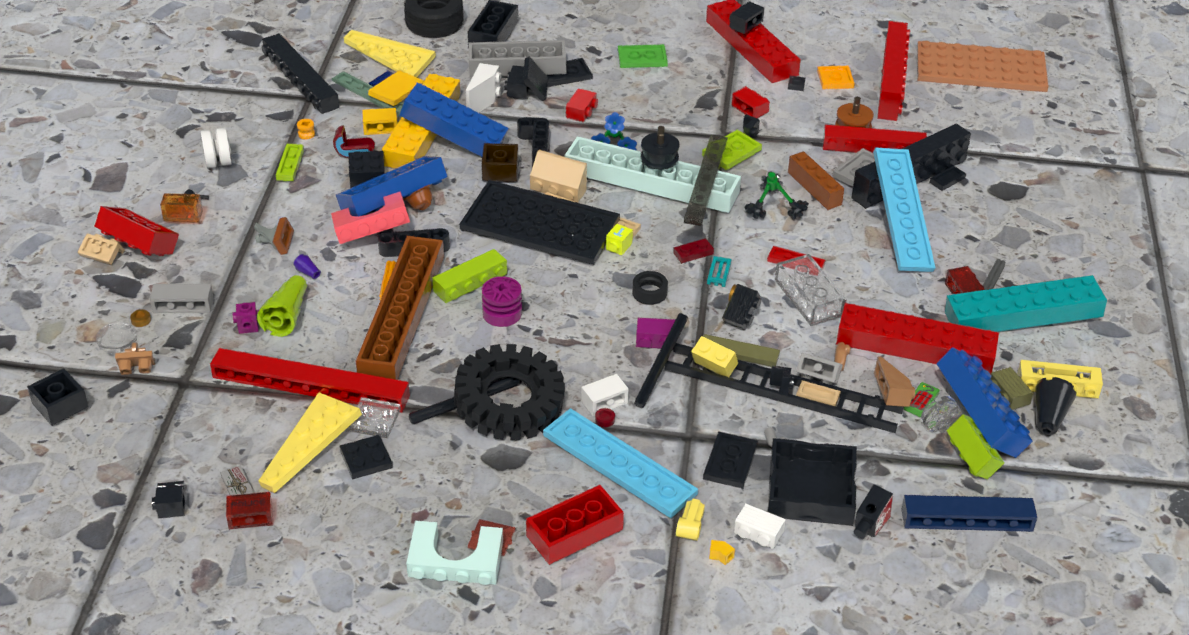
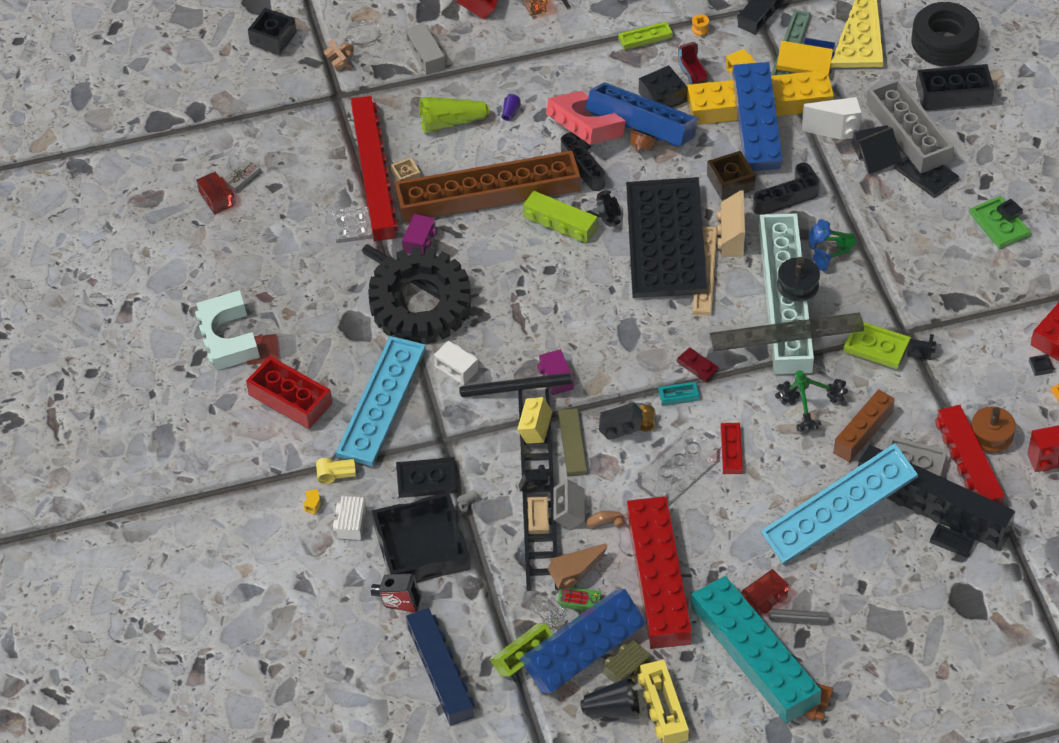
camera: 70 degrees right, 10 degrees up
(140, 318) = (393, 36): pearl gold tile -> none
(169, 499) = (203, 144): black brick -> none
(246, 317) = (419, 91): magenta brick -> none
(279, 236) = (538, 72): dark orange piece -> none
(315, 431) = (319, 195): light yellow wing -> none
(333, 358) = (405, 170): none -> tan piece
(365, 456) = (309, 238): black plate -> none
(425, 373) = (419, 233): none -> magenta brick
(486, 241) = (607, 208): none -> black tile
(501, 301) = (531, 249): magenta wheel -> none
(581, 105) = (871, 202): red brick -> none
(605, 417) = (433, 374): dark red tile -> none
(619, 239) = (674, 302): neon yellow brick -> none
(637, 44) = (1009, 210): none -> black tile
(648, 296) = (619, 336): black tyre -> none
(750, 102) = (969, 334): red brick -> none

